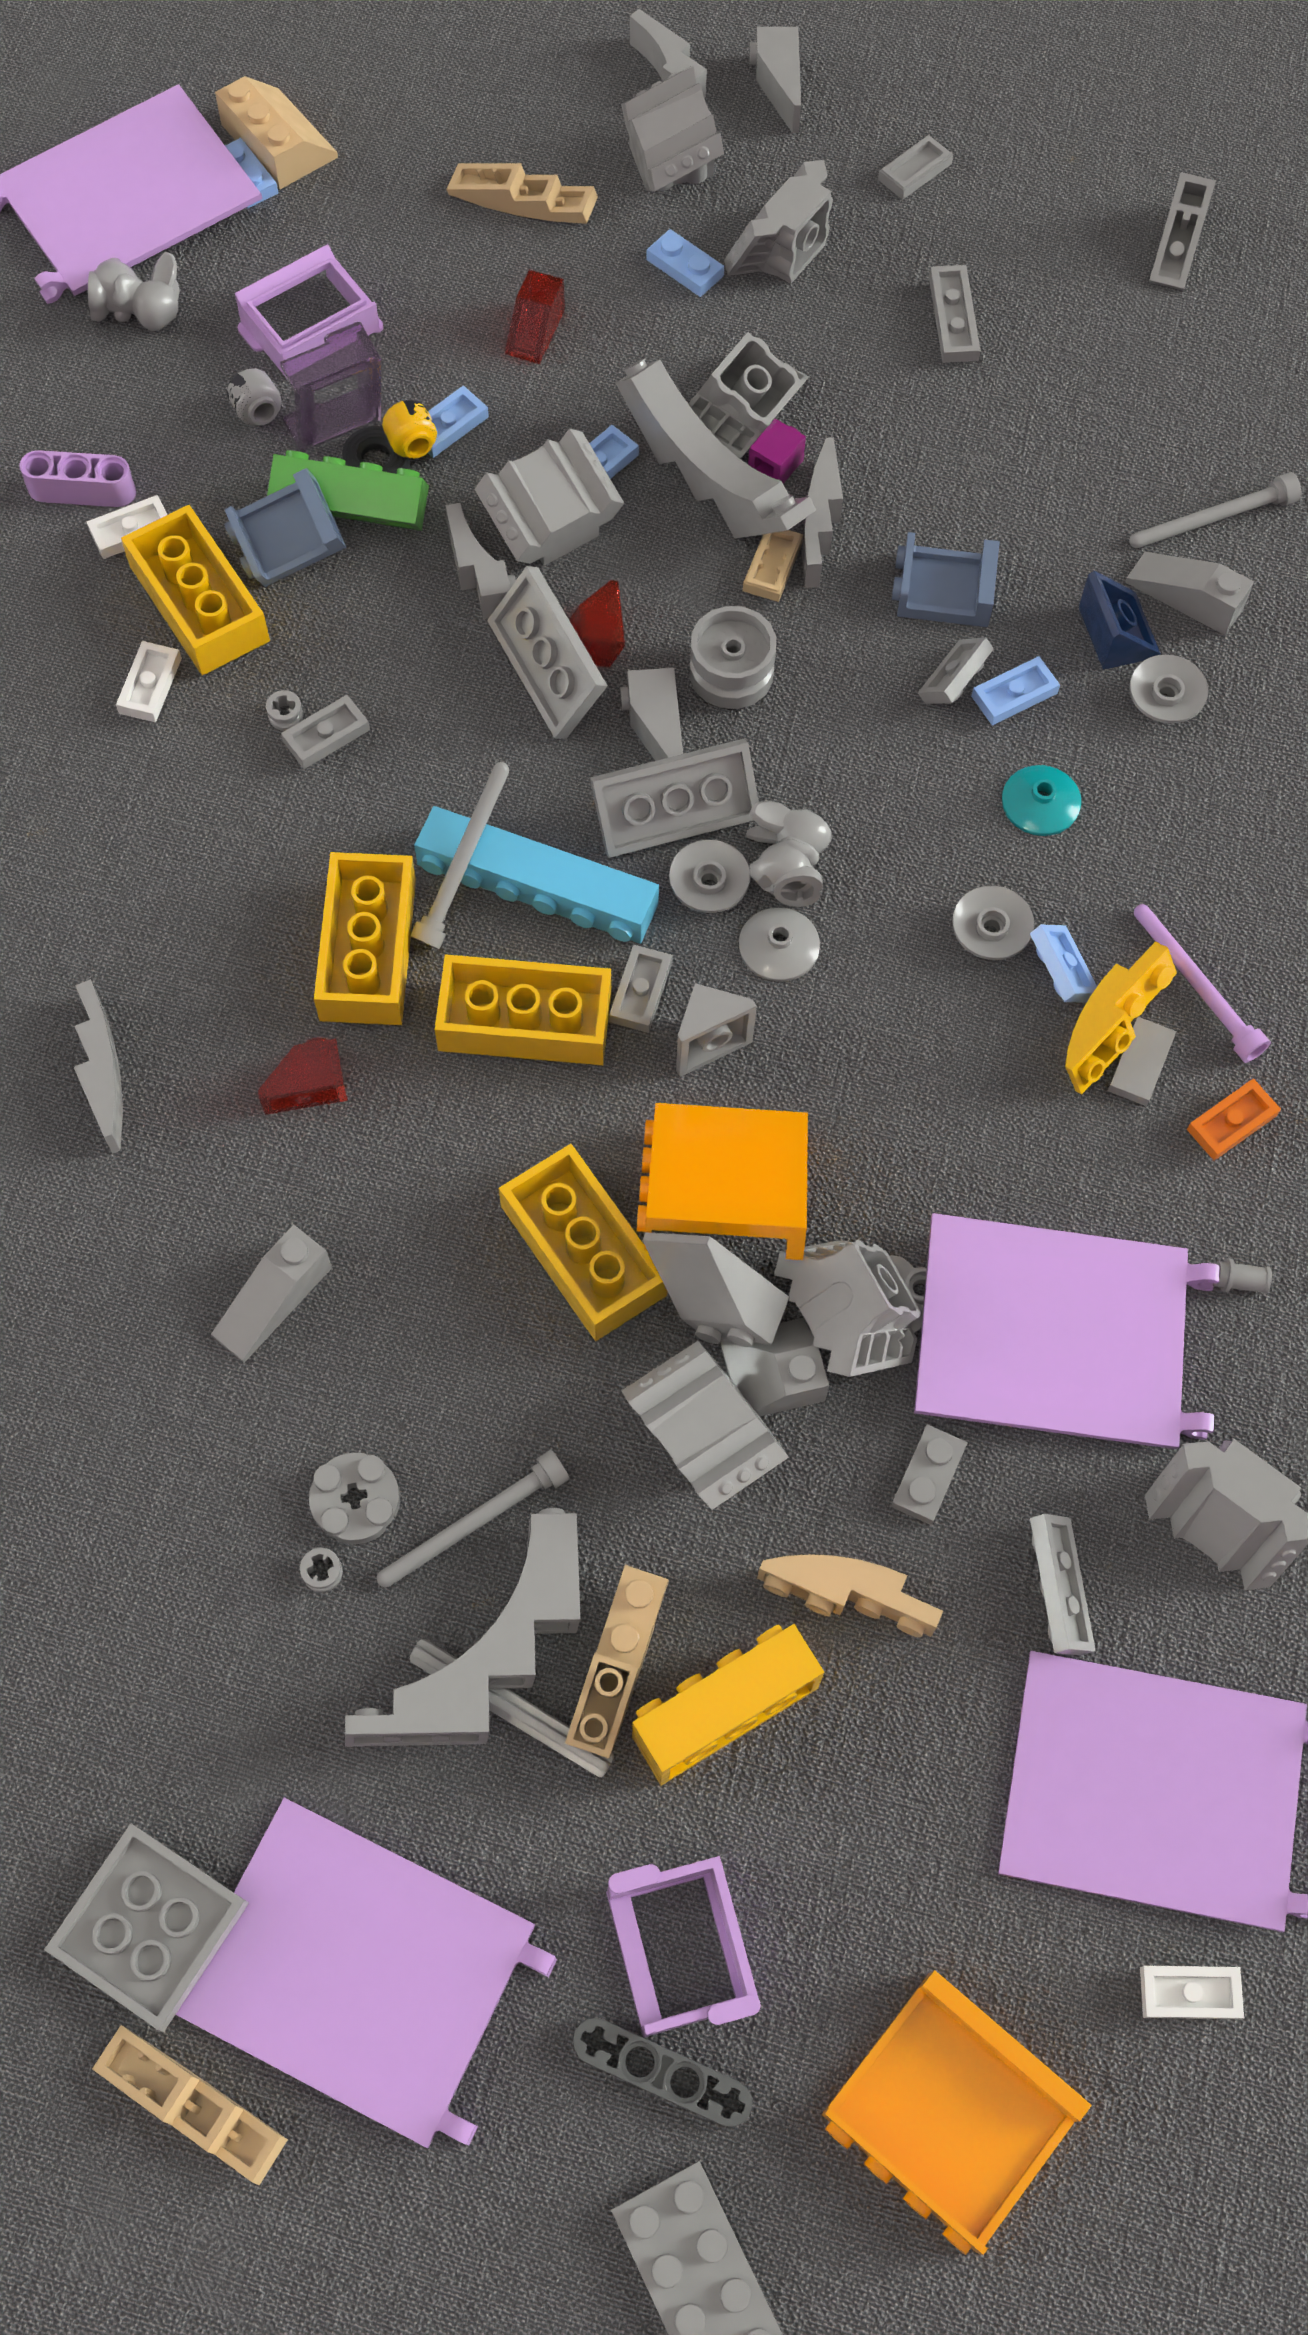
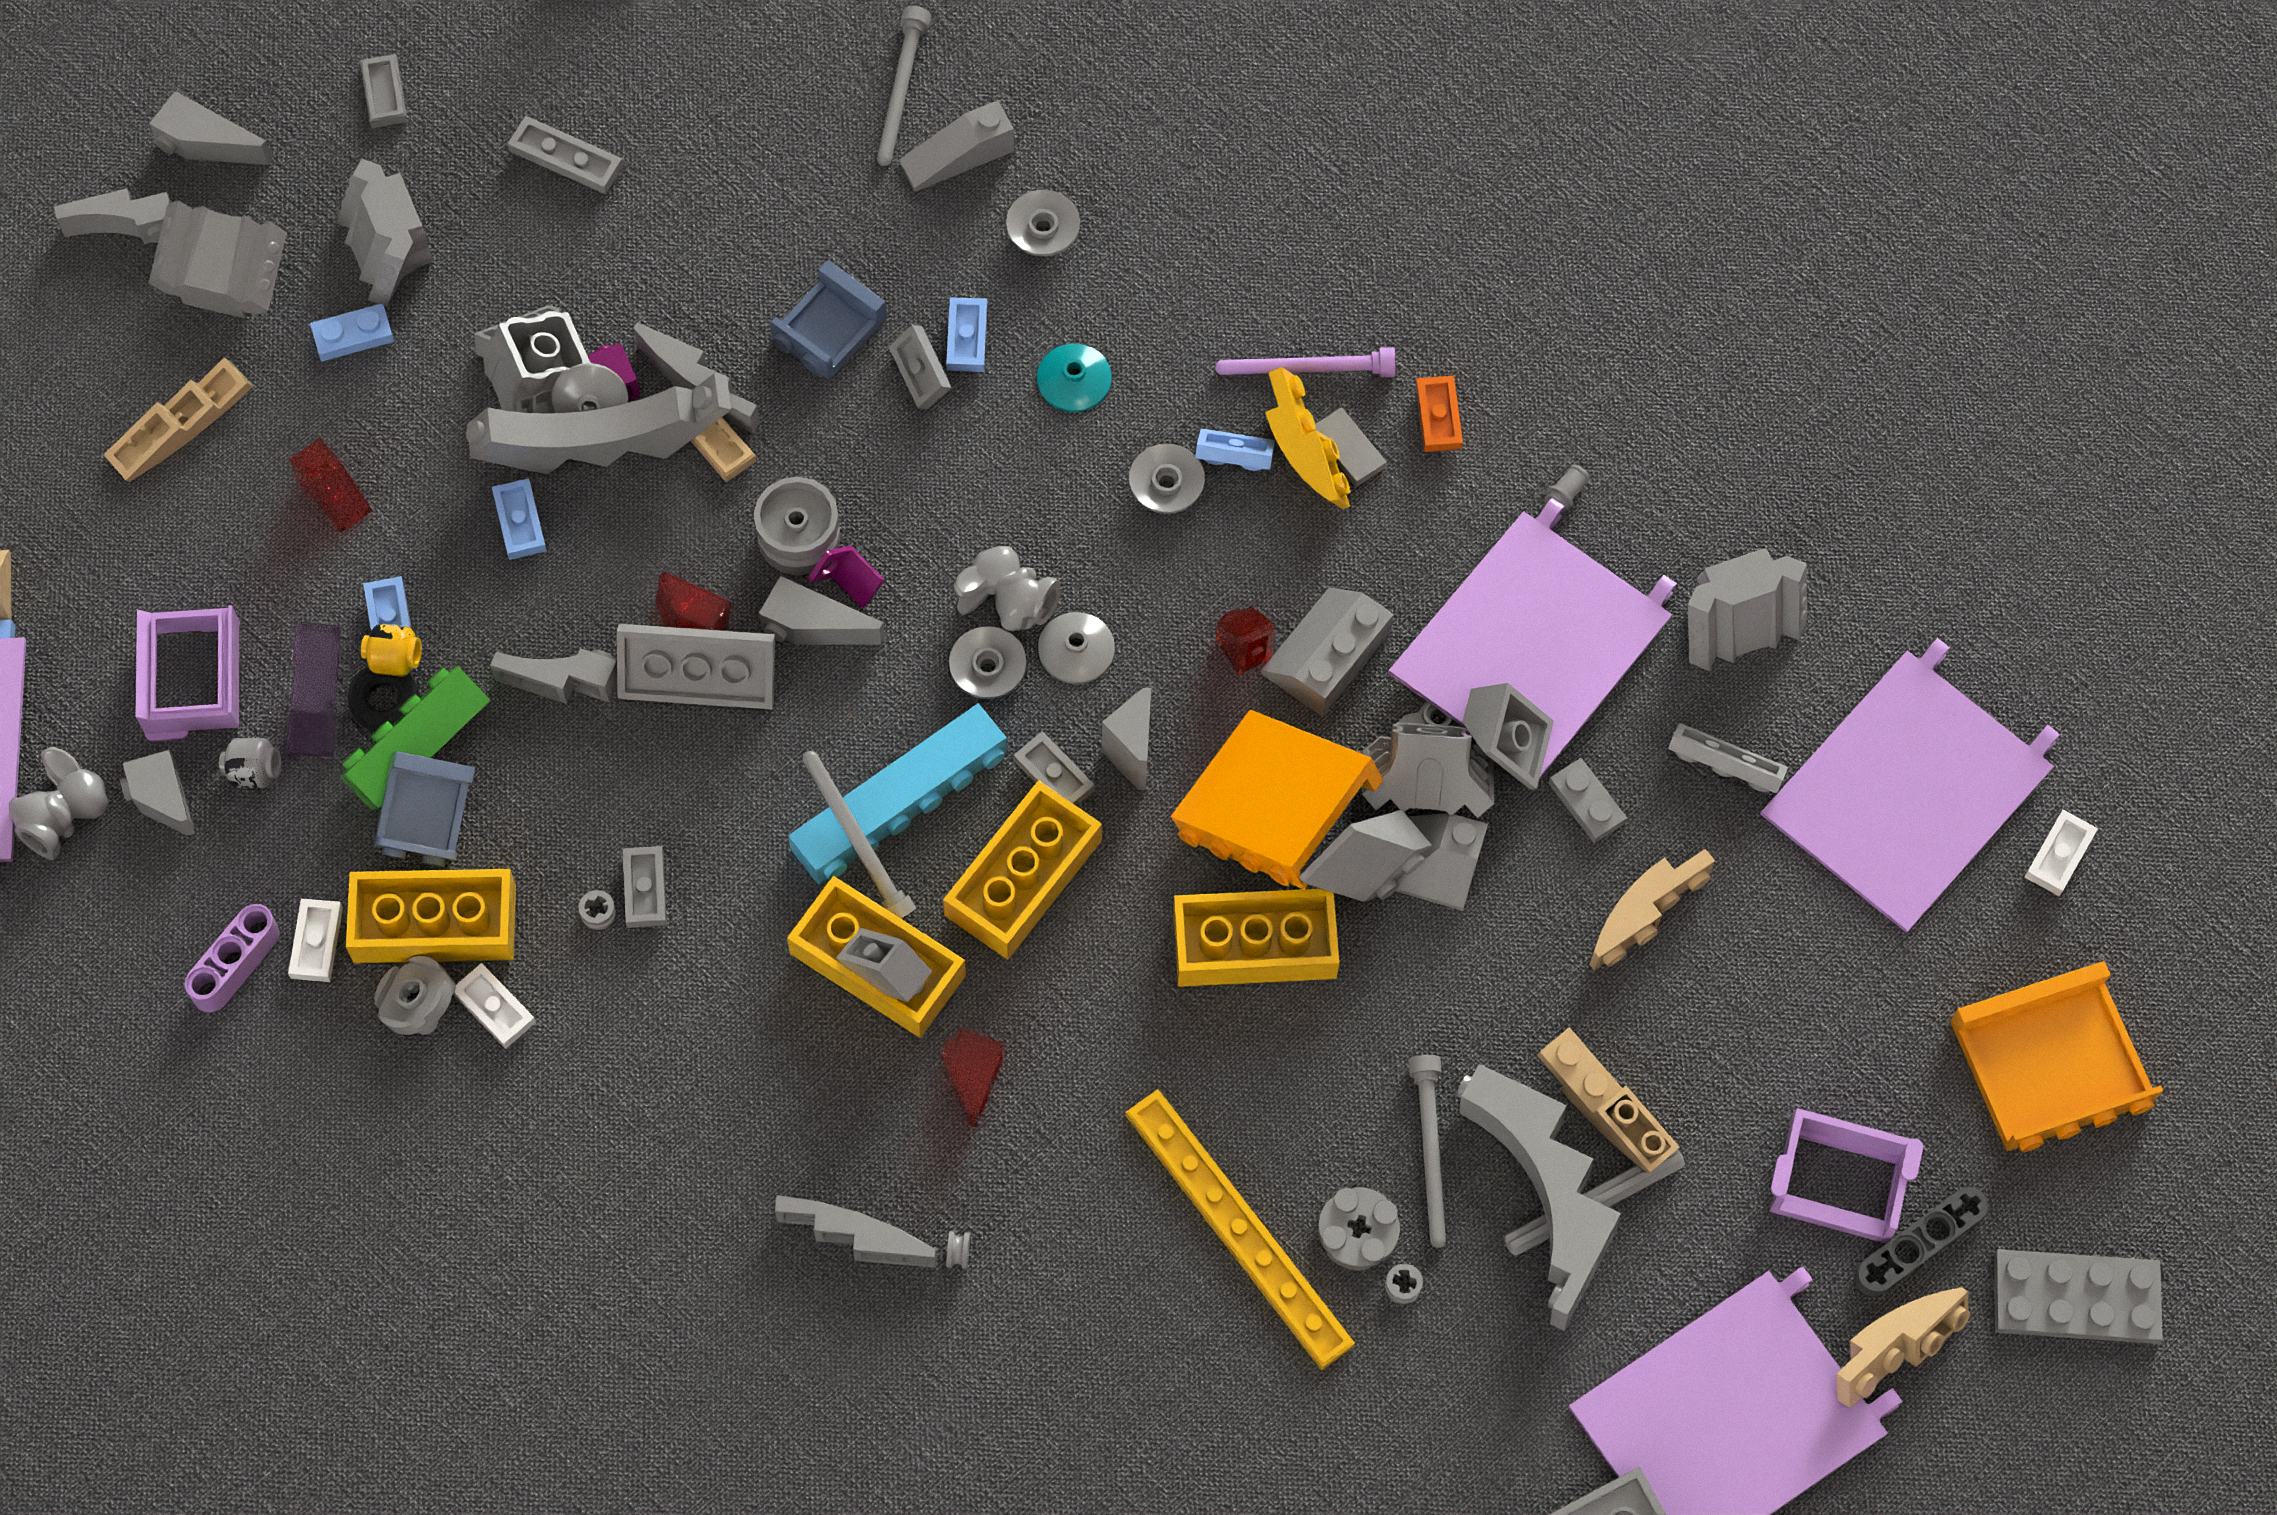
camera: 60 degrees left, 0 degrees up
(119, 618) = (427, 1008): none -> light grey plate
(131, 1158) = (958, 1250): none -> light grey bush
(193, 353) = (158, 790): none -> light grey slope
(272, 1292) = (1149, 1200): light grey slope -> none
(291, 1394) = (1240, 1230): none -> yellow tile
(344, 937) = (885, 963): none -> light grey slope
(549, 2111) = (1905, 1333): none -> tan slope
(550, 499) = (544, 576): light grey slope -> none
(675, 797) = (903, 645): light grey plate -> none
(705, 1424) = (1468, 929): light grey slope -> none
(724, 718) = (850, 572): none -> magenta bracket
(726, 1703) = (1688, 1039): yellow brick -> none
(744, 434) = (588, 383): none -> light grey dish
(877, 1073) = (1246, 638): none -> clear red slope
(923, 1155) = (1329, 647): none -> light grey slope
(934, 1353) = (1509, 730): none -> light grey slope
(1115, 622) = (955, 223): dark blue slope -> none

